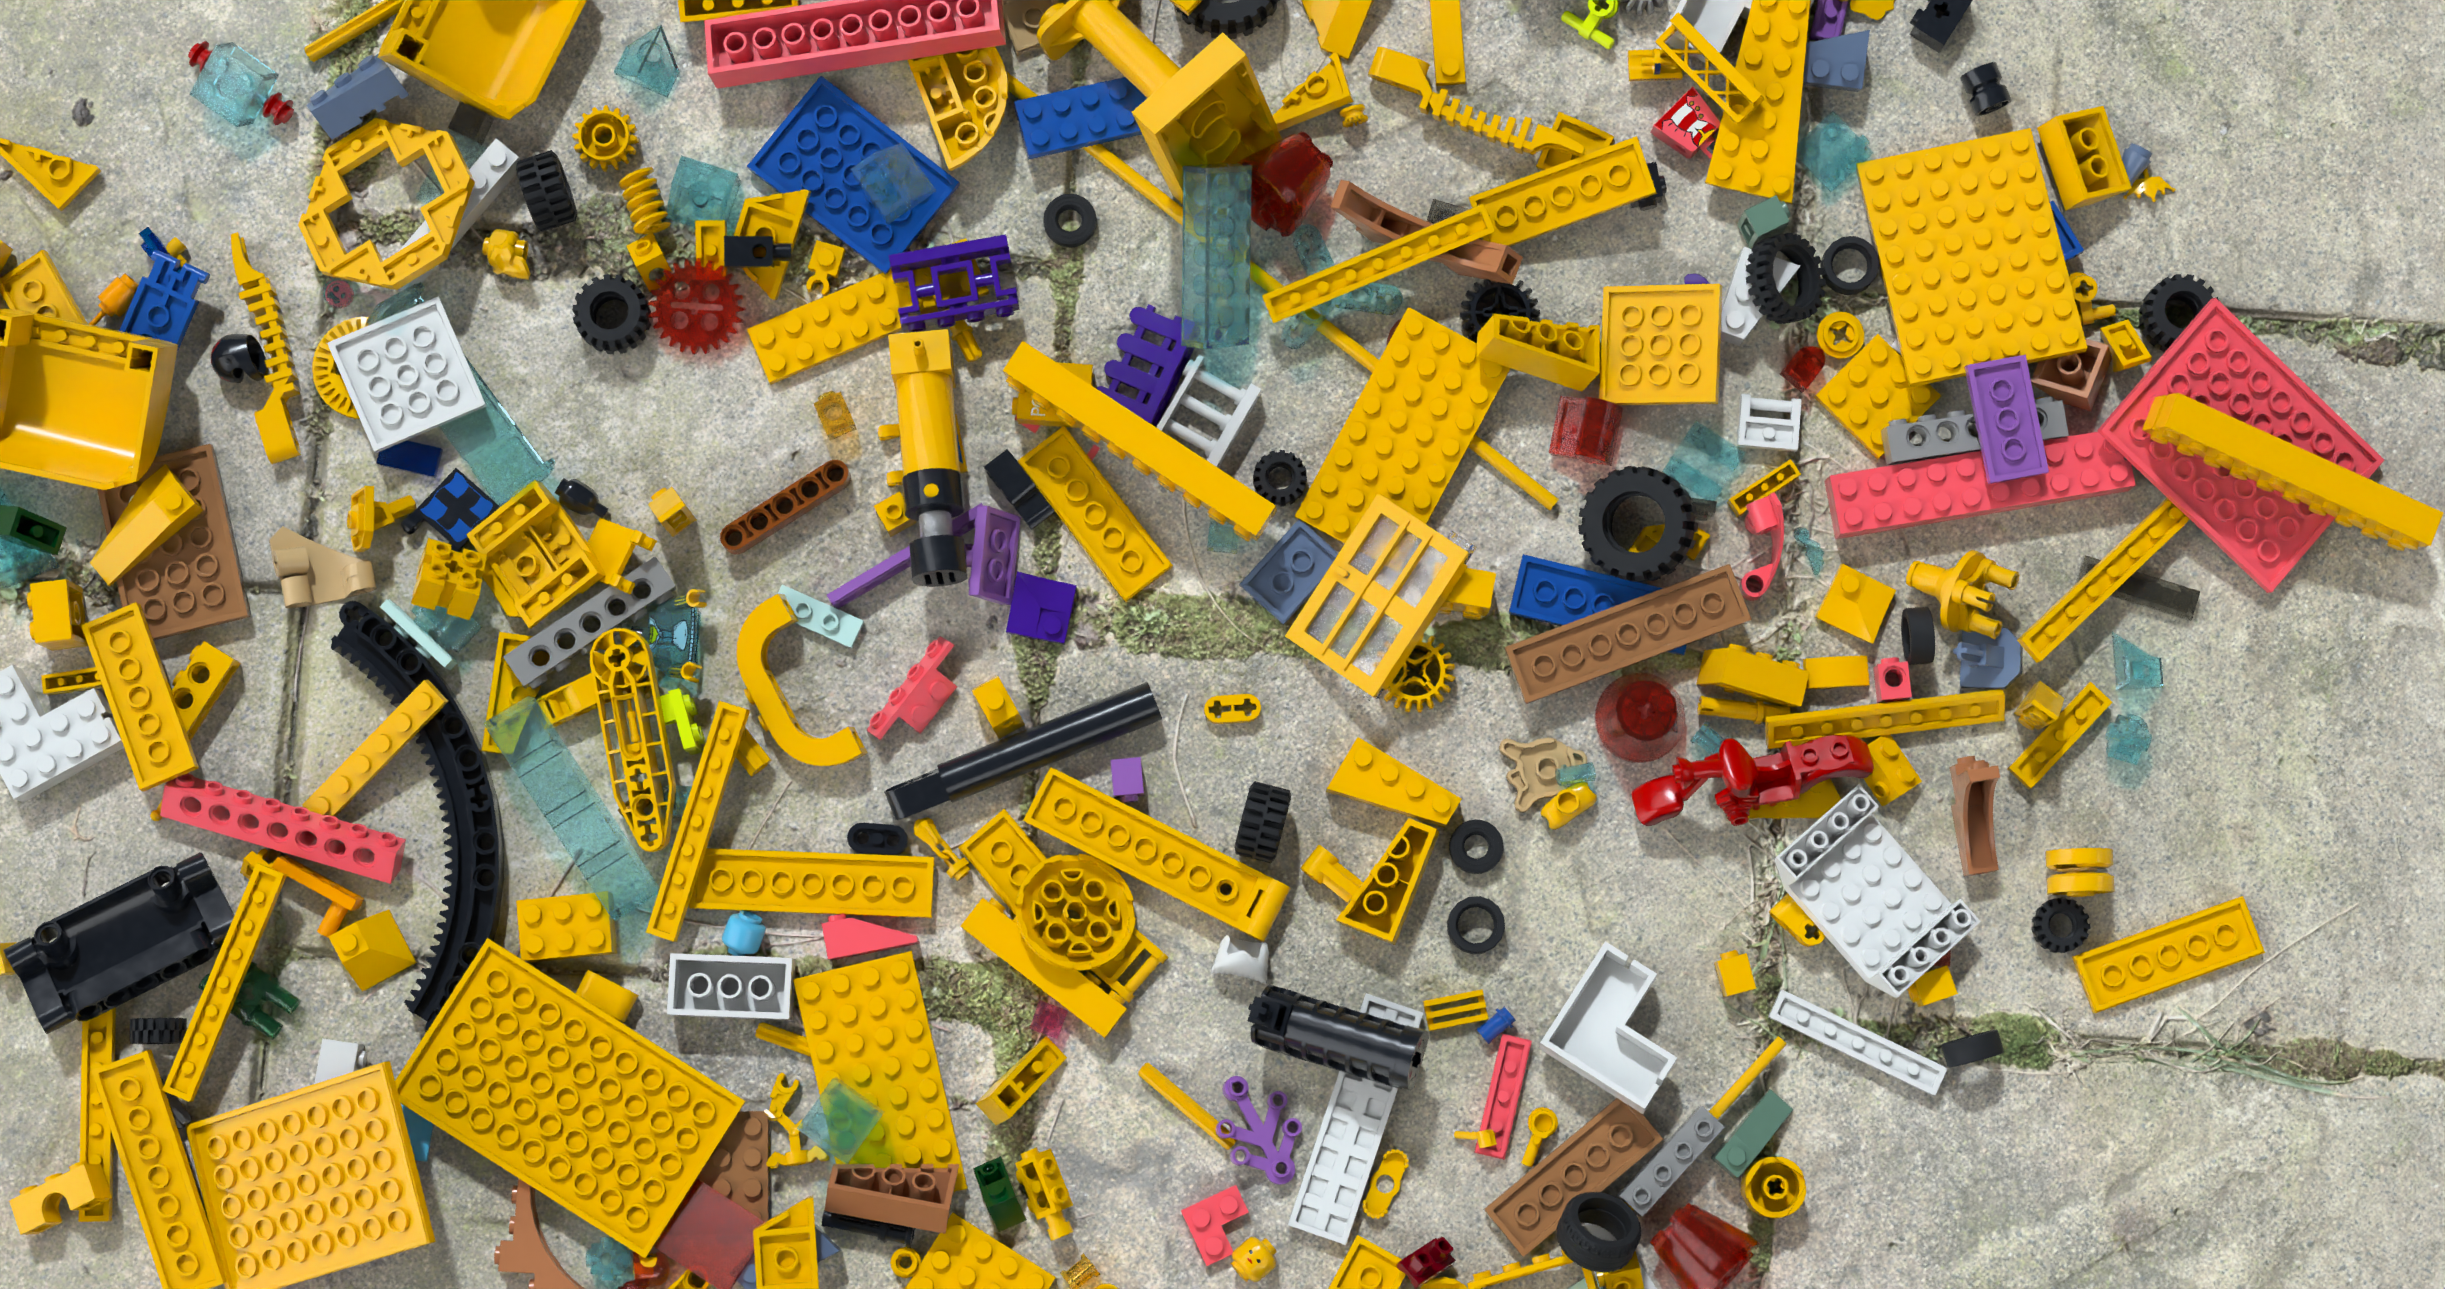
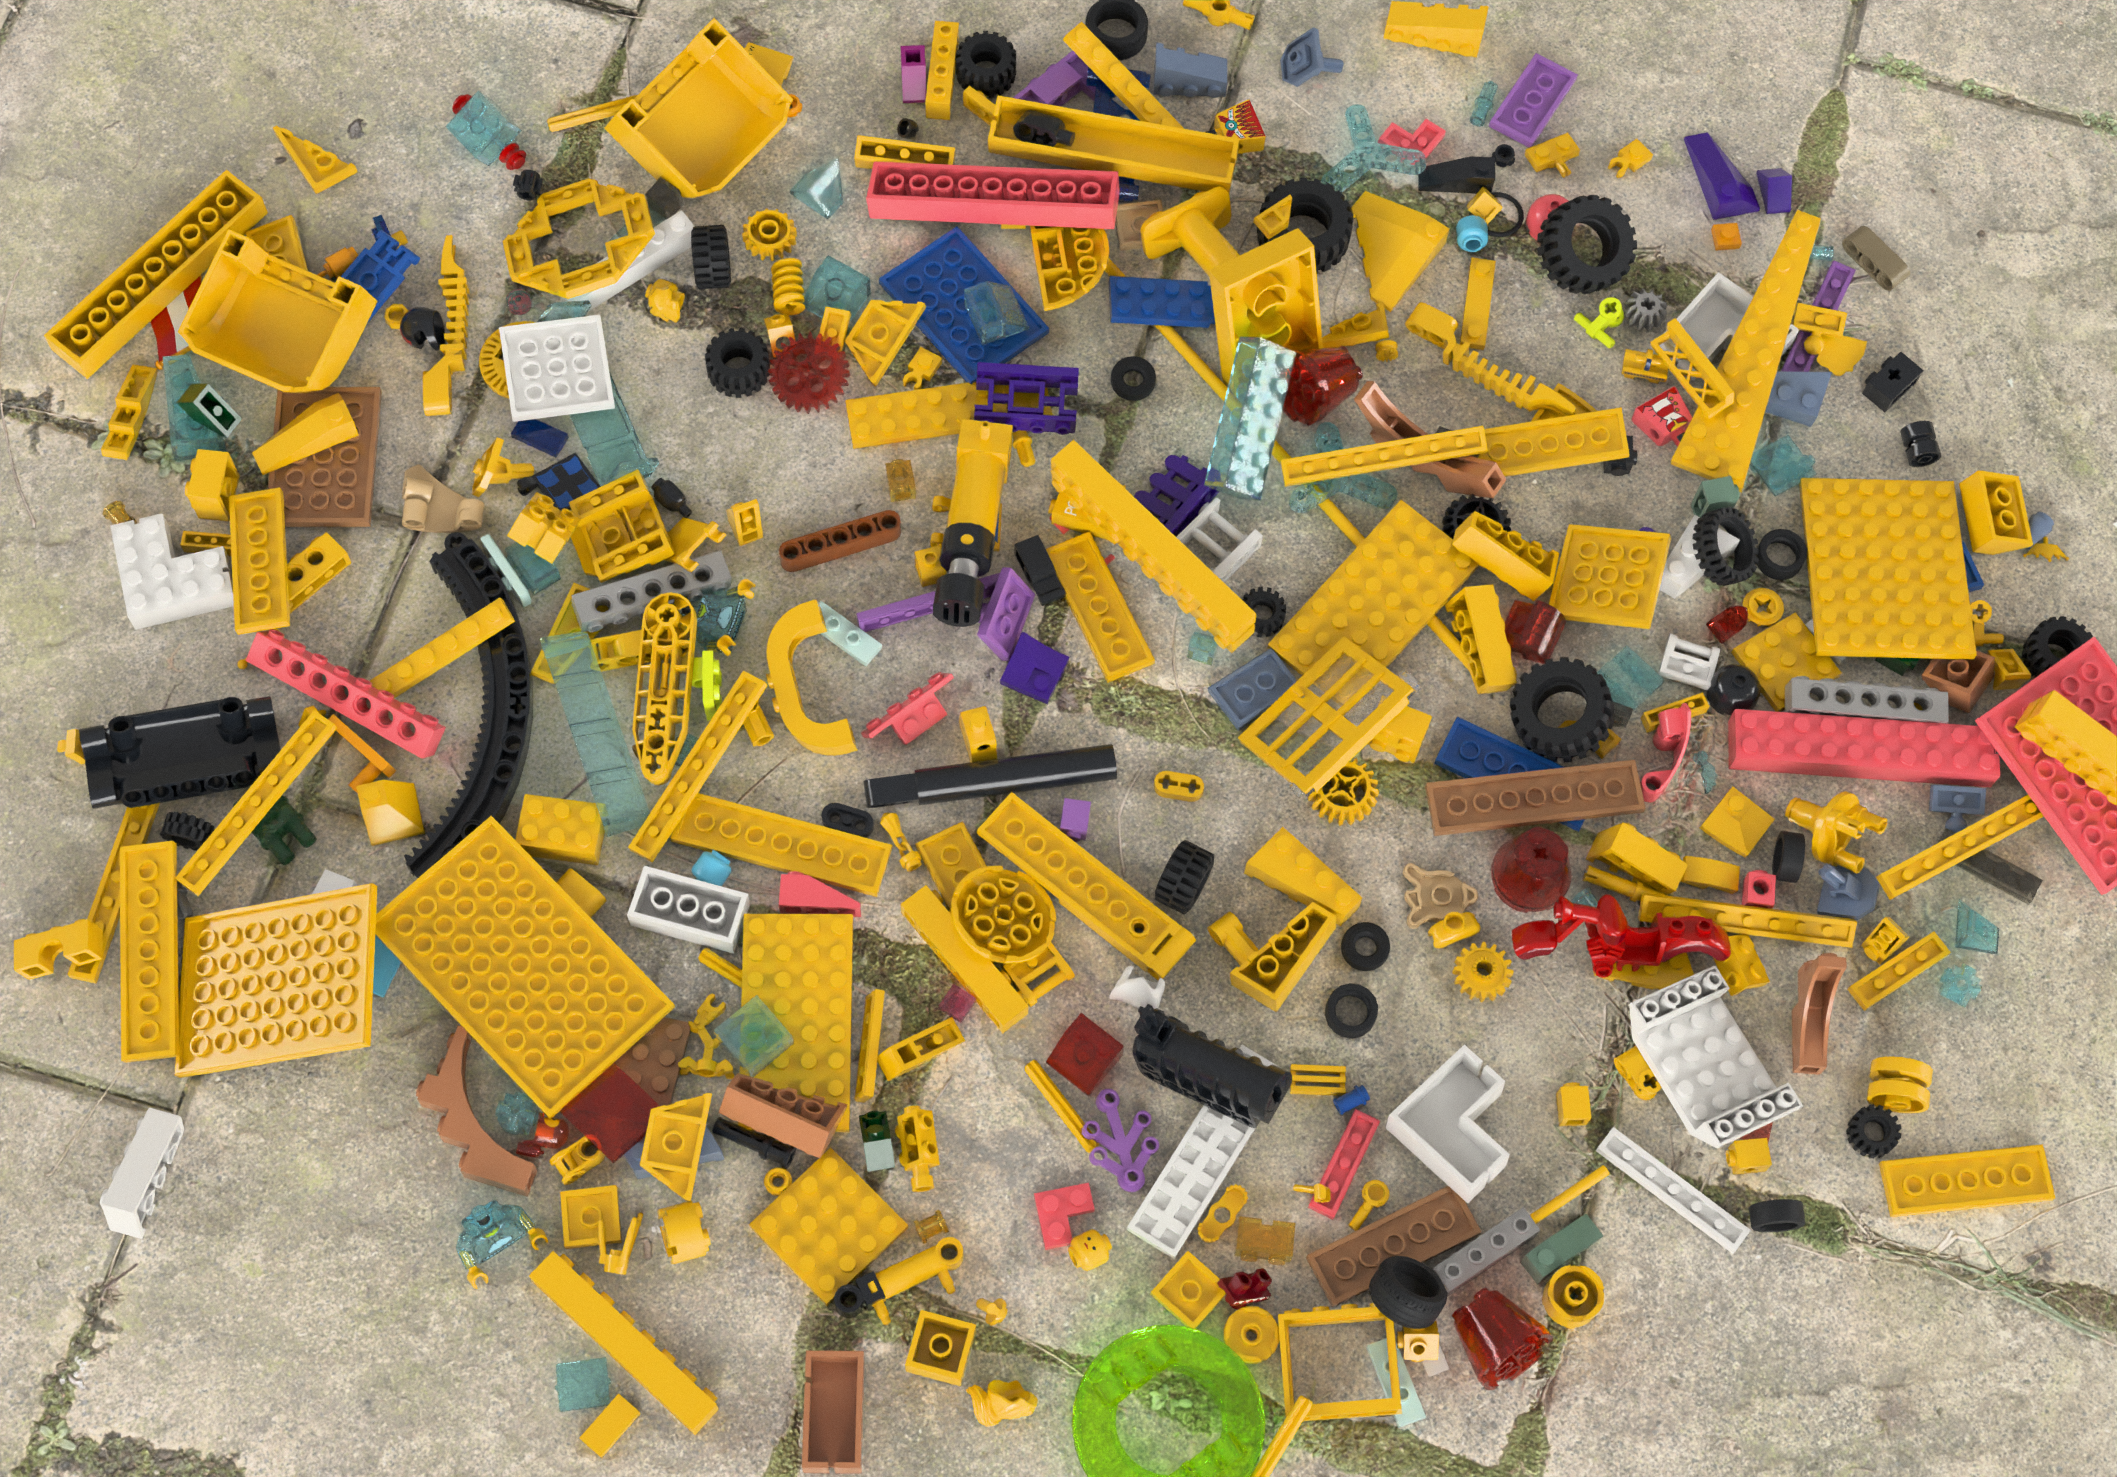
camera: 10 degrees right, 15 degrees down
(201, 346) = (394, 315): none -> yellow tile
(307, 142) = (528, 185): none -> black gear
(355, 96) = (578, 157): sand blue wedge -> none
(740, 249) = (866, 336): black torso -> none
(965, 1091) = (869, 1046): none -> yellow tile
(1199, 1045) = (1085, 1054): none -> clear red slope
(1444, 1204) = (1264, 1241): none -> clear yellow brick
(1535, 458) = (1483, 638): none -> yellow wedge
(1575, 774) = (1465, 903): clear light blue pin -> none
(1616, 832) = (1487, 959): none -> yellow gear
(1825, 446) = (1733, 689): none -> black cylinder
(2006, 419) = (1897, 693): medium lavender plate -> none
(2093, 521) = (1957, 802): none -> sand blue plate

